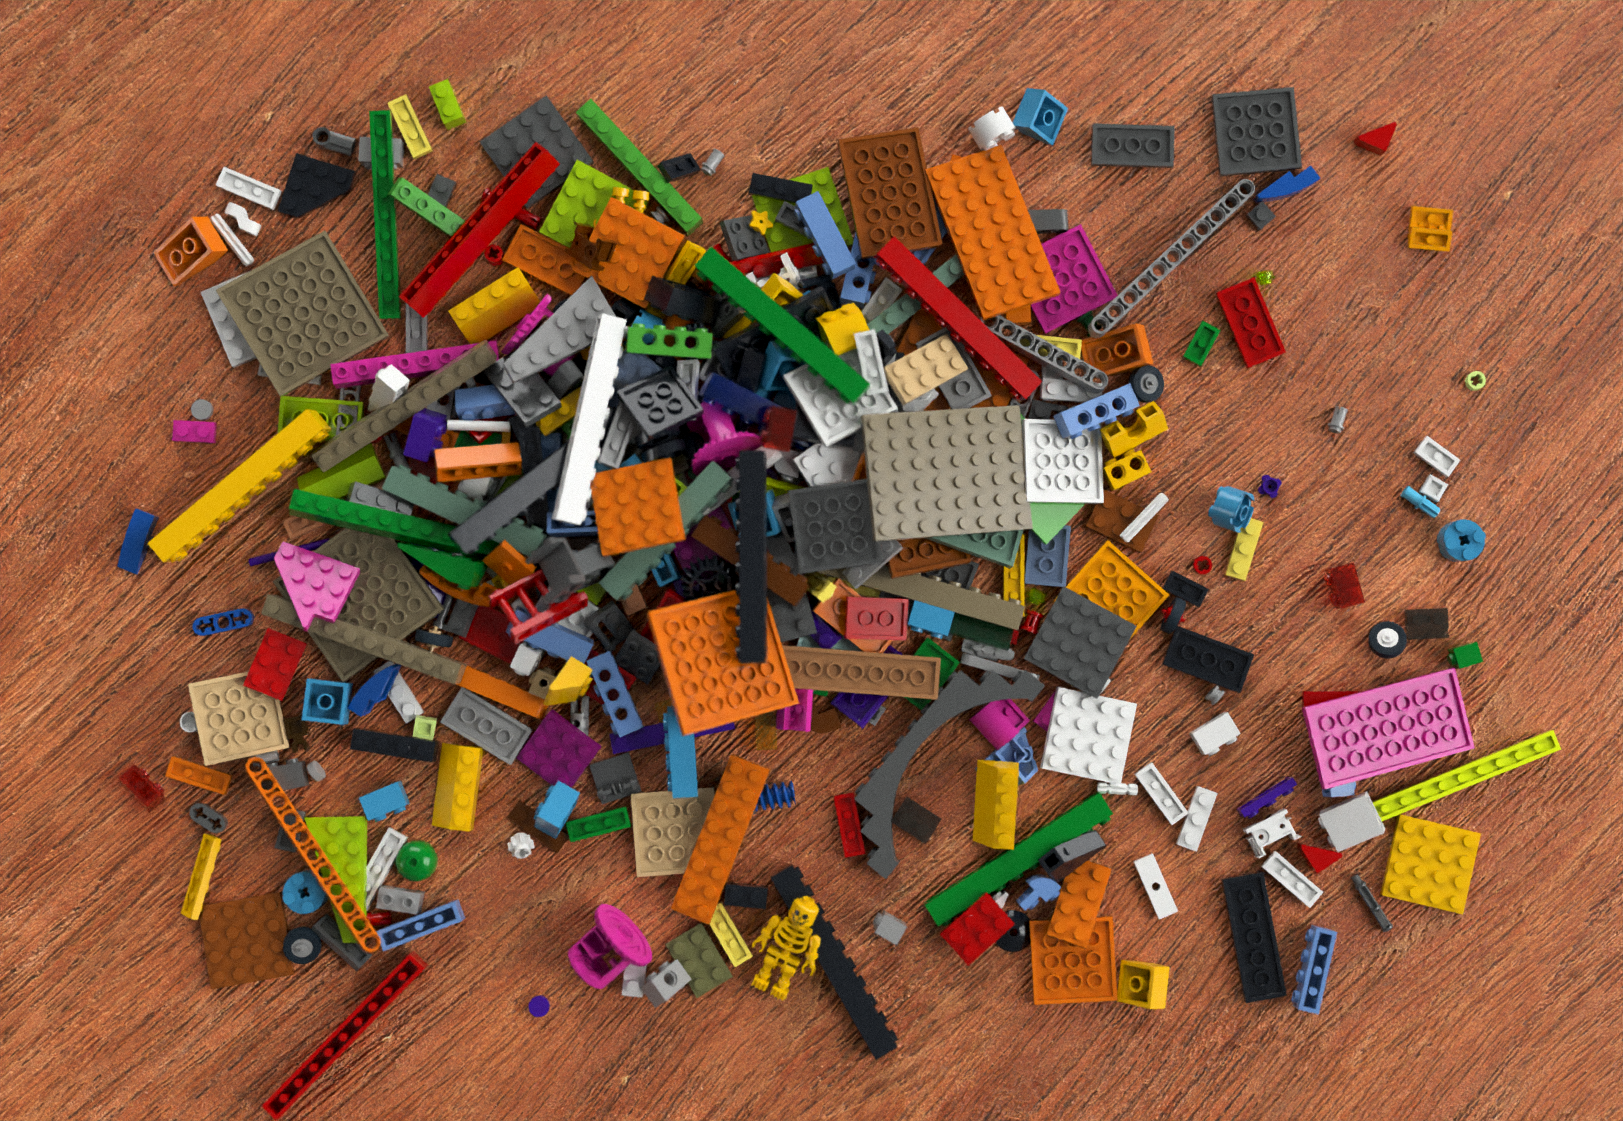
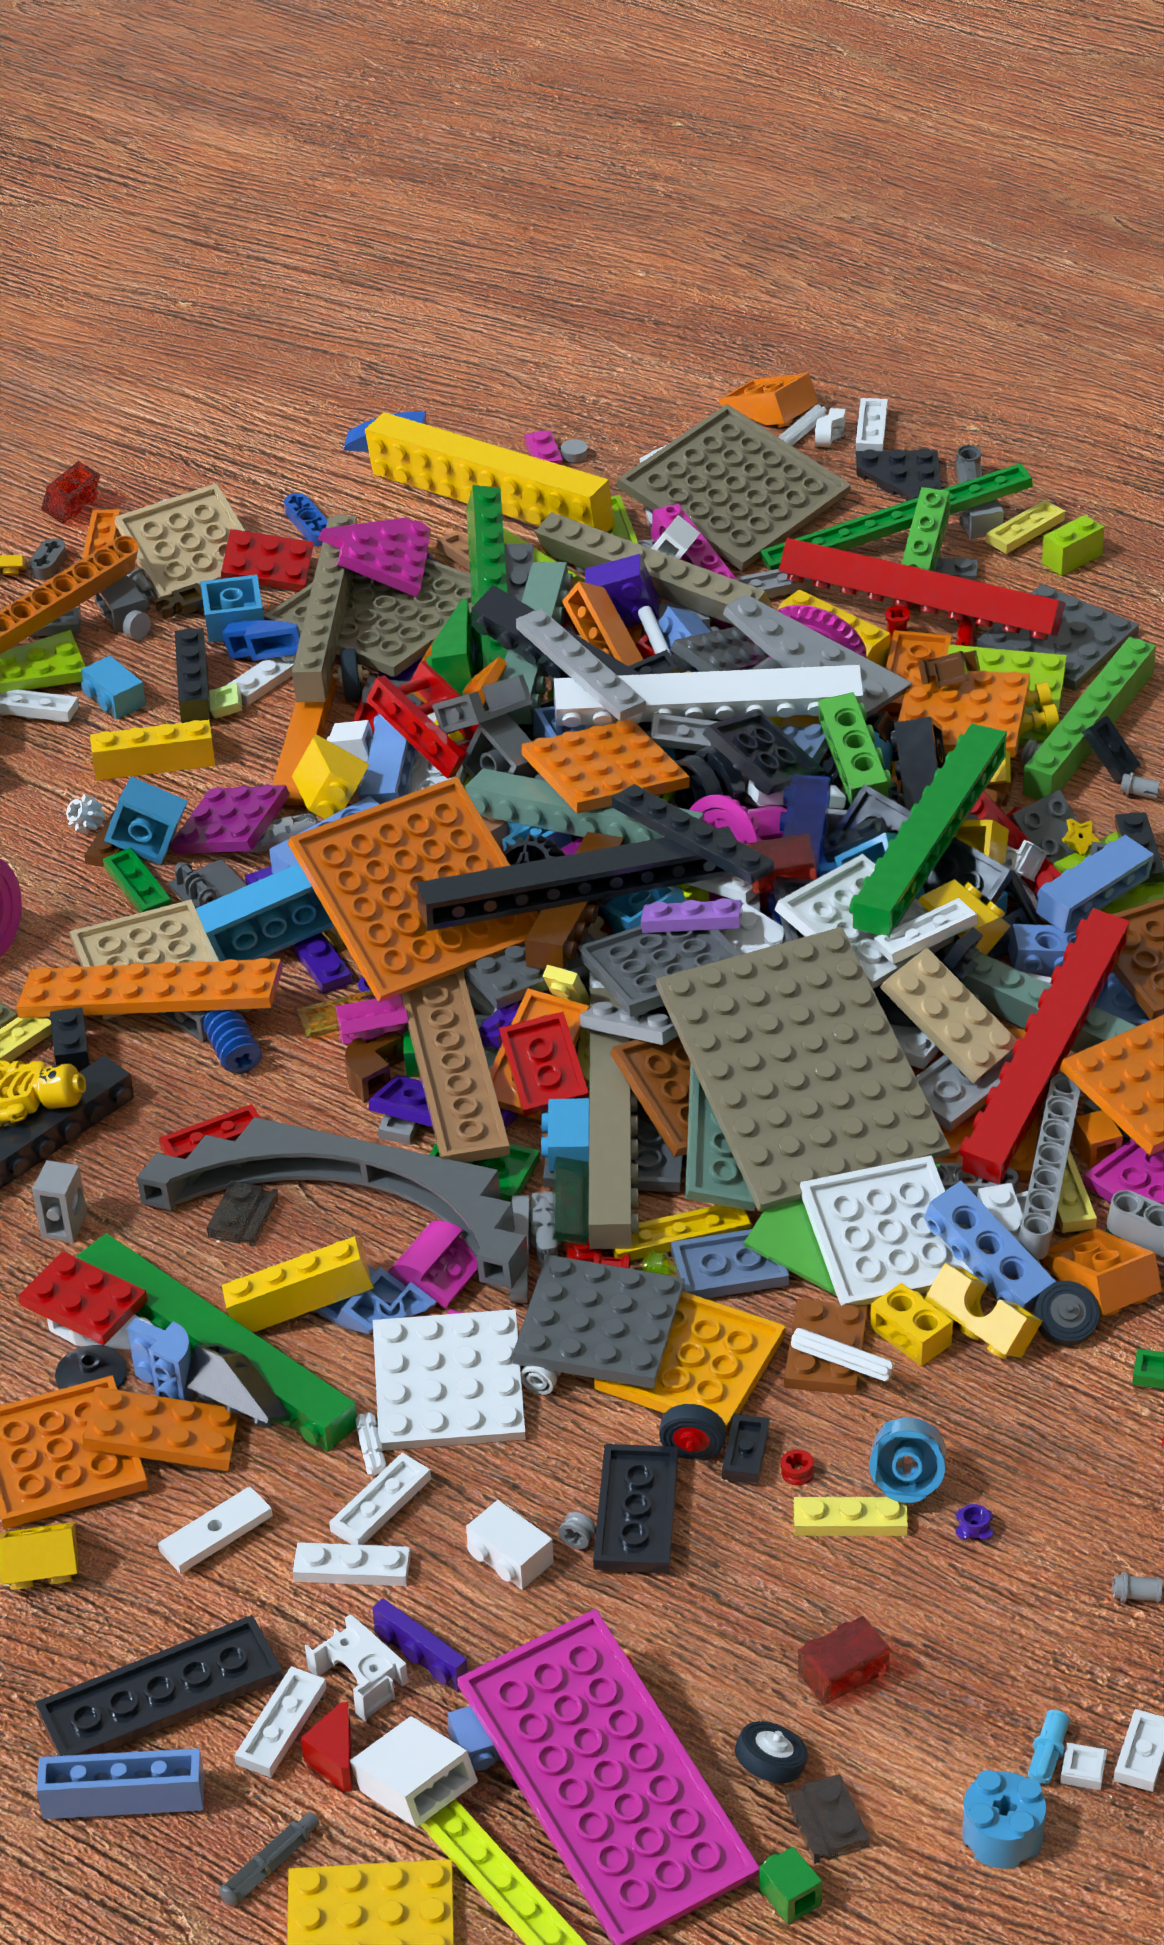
camera: 80 degrees right, 45 degrees down
(416, 860) = (37, 732): green cylinder -> none
(486, 725) = (245, 751): light grey plate -> none
(550, 498) = (581, 665): none -> light grey plate
(745, 477) = (693, 834): none -> black plate
(804, 497) = (691, 916): none -> medium lavender plate

